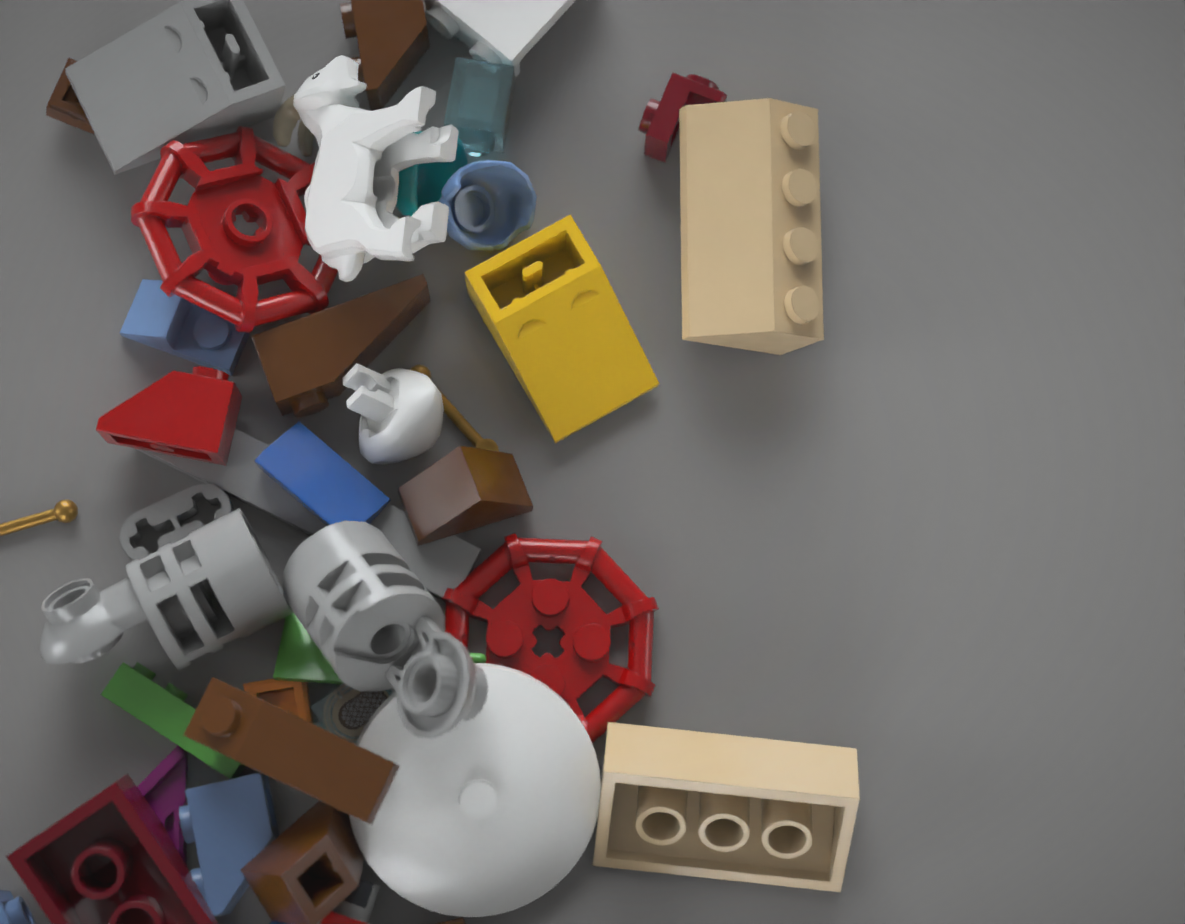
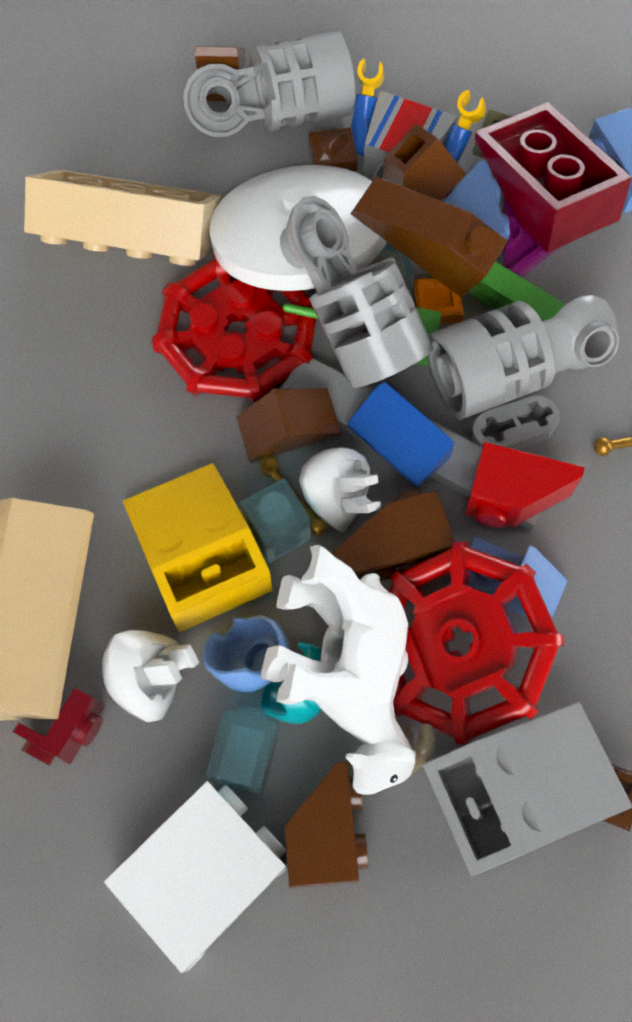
camera: 170 degrees left, 10 degrees down
(468, 362) = (276, 520): none -> clear light blue brick
(597, 176) = (144, 671): none -> white piece

